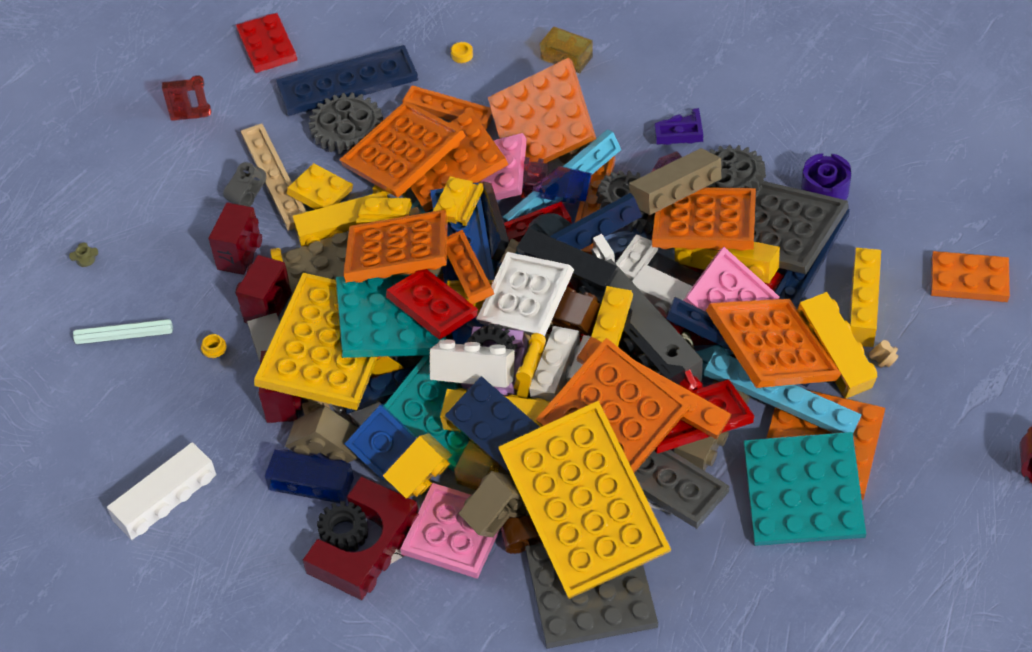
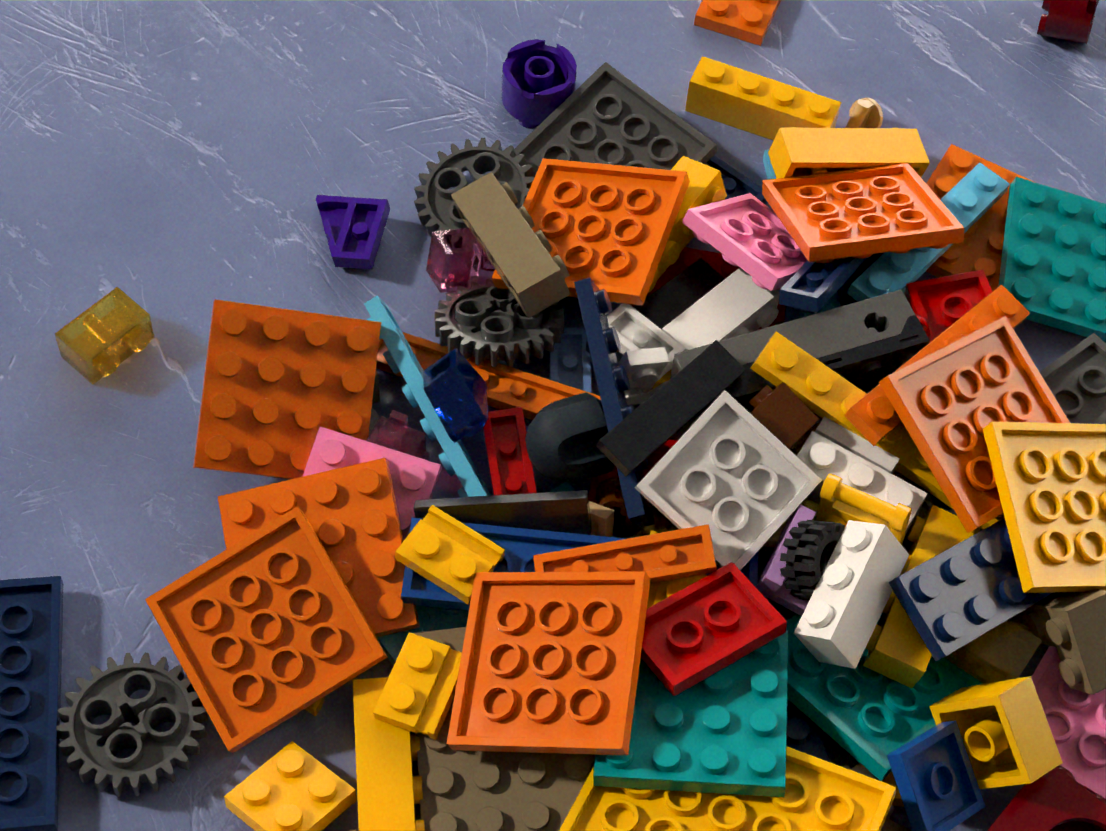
camera: 85 degrees left, 5 degrees up
(446, 106) = (159, 549): orange plate -> none
(461, 52) = (23, 499): yellow tile -> none

